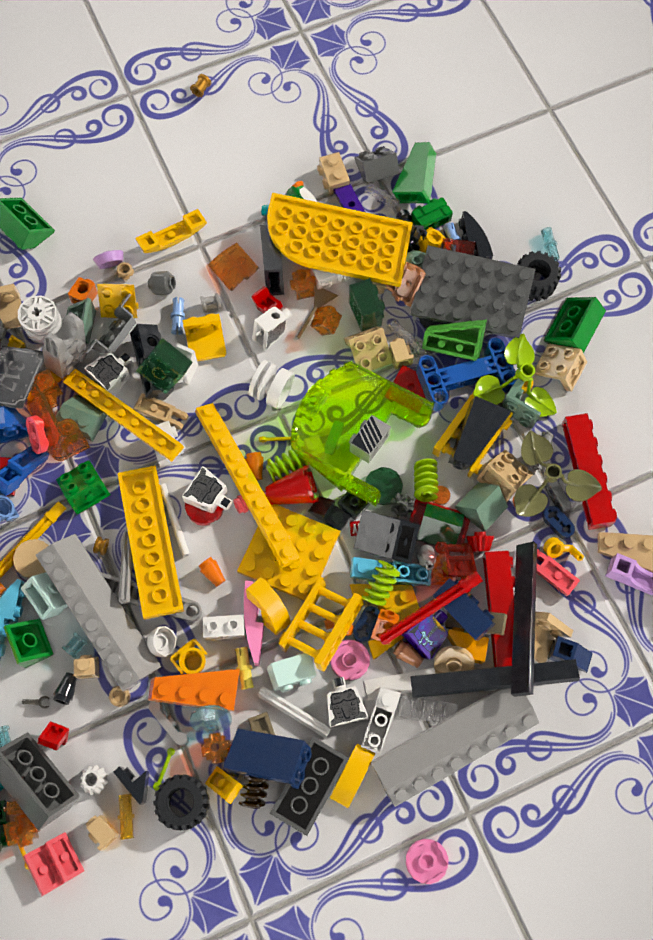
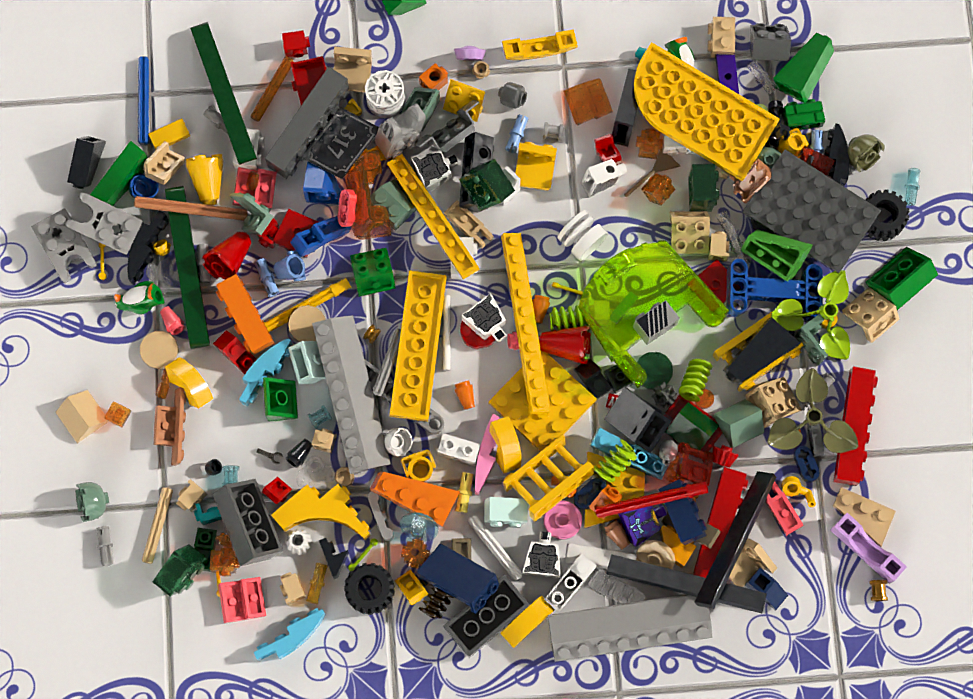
camera: 20 degrees right, 5 degrees up
(90, 708) = (315, 477): none -> clear plate
(92, 740) = (307, 507): none -> yellow arch
(123, 877) = (299, 632): none -> medium azure slope
(497, 226) = (864, 151): none -> olive cylinder

